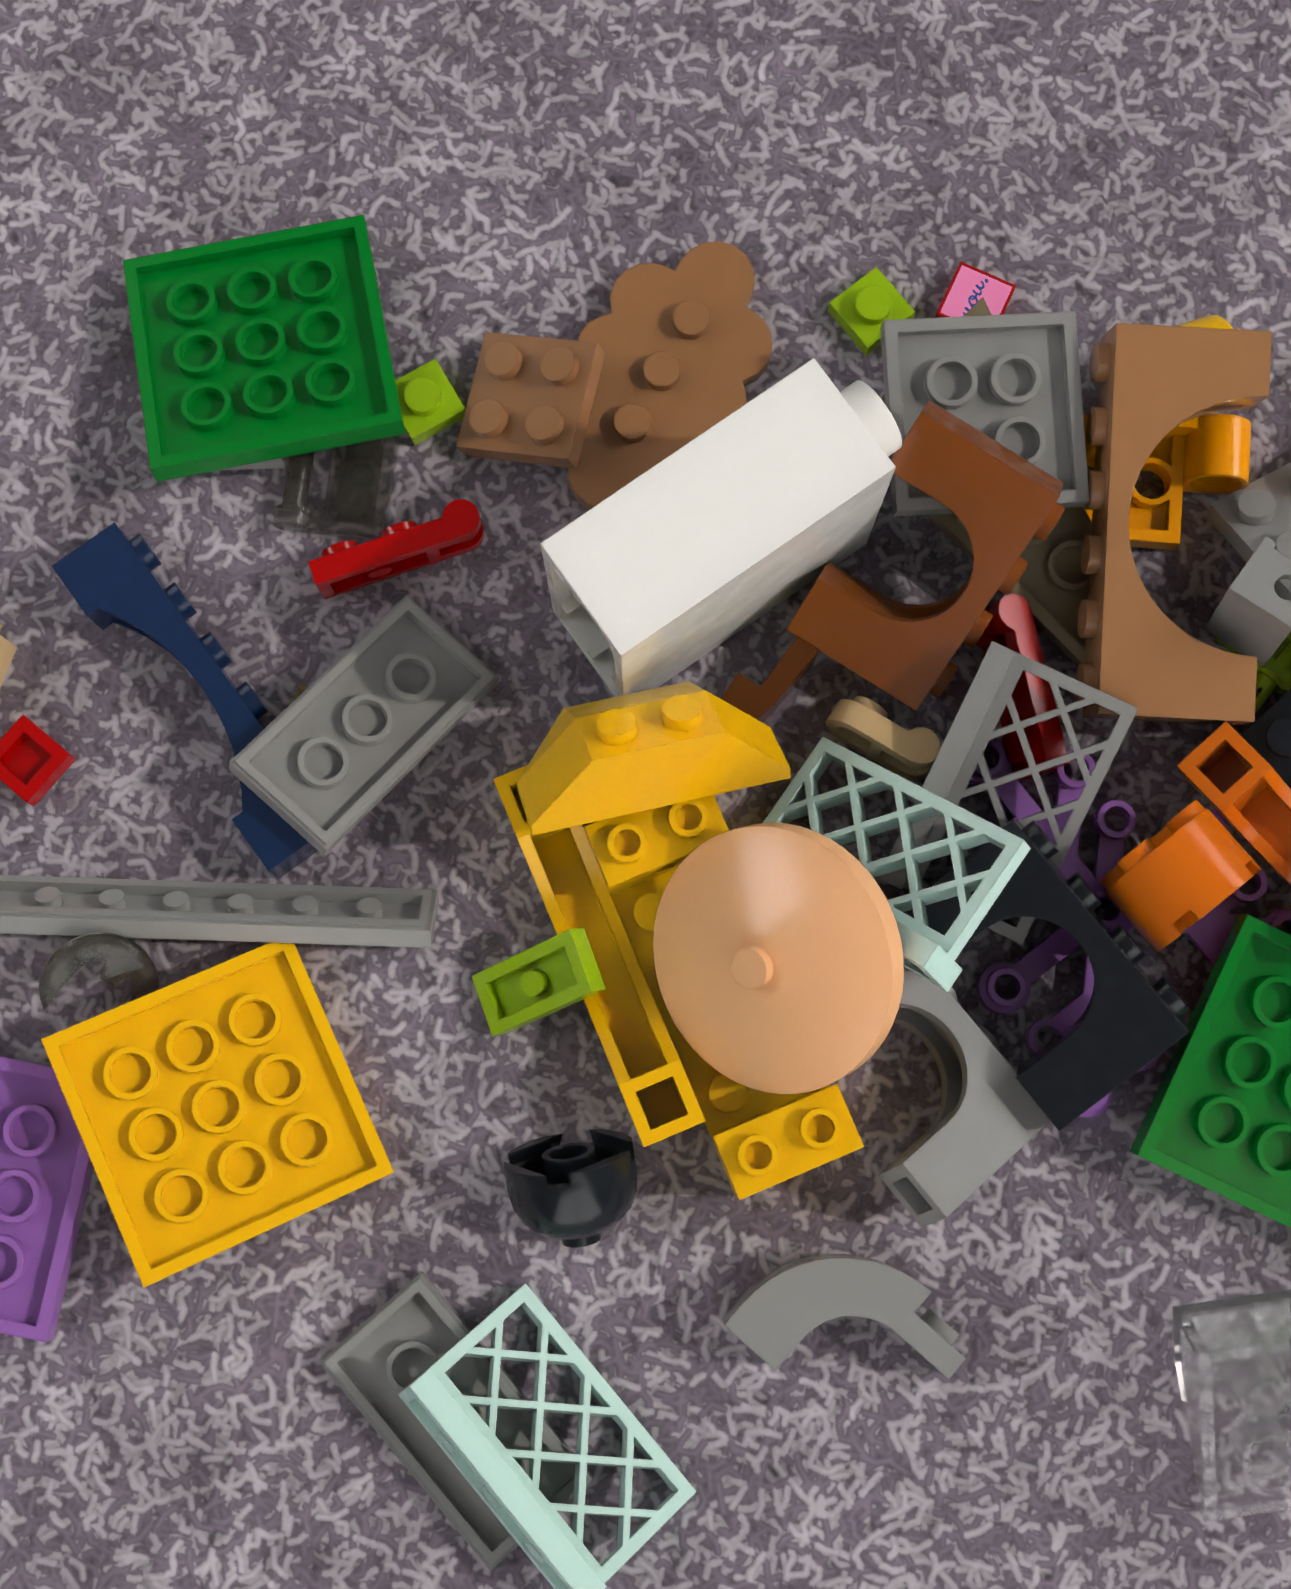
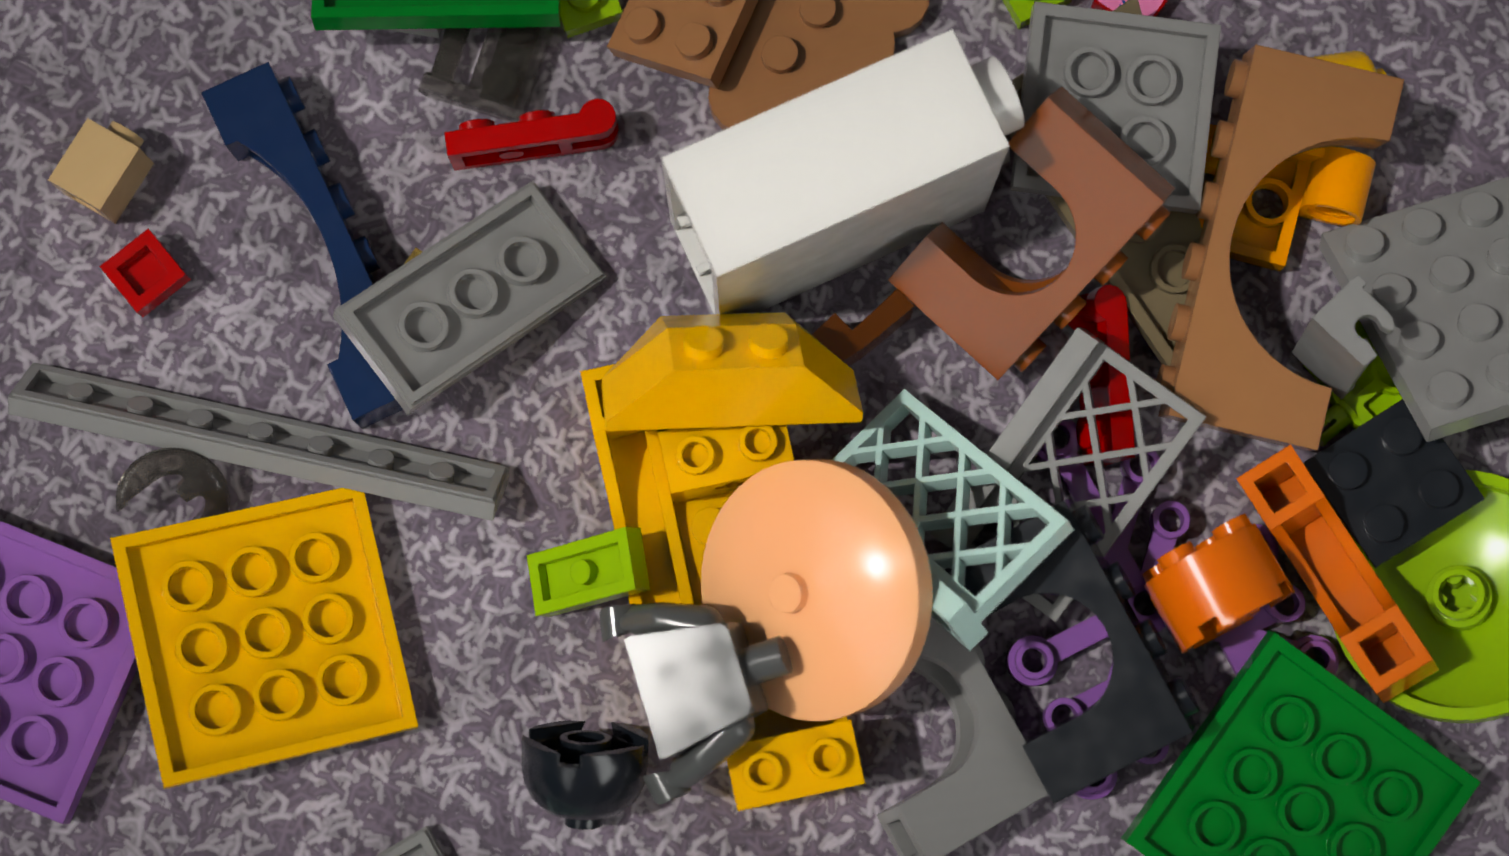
camera: 10 degrees right, 0 degrees up
(673, 1079) = (695, 685): none -> torso
(866, 728) = (948, 389): tan plate -> none

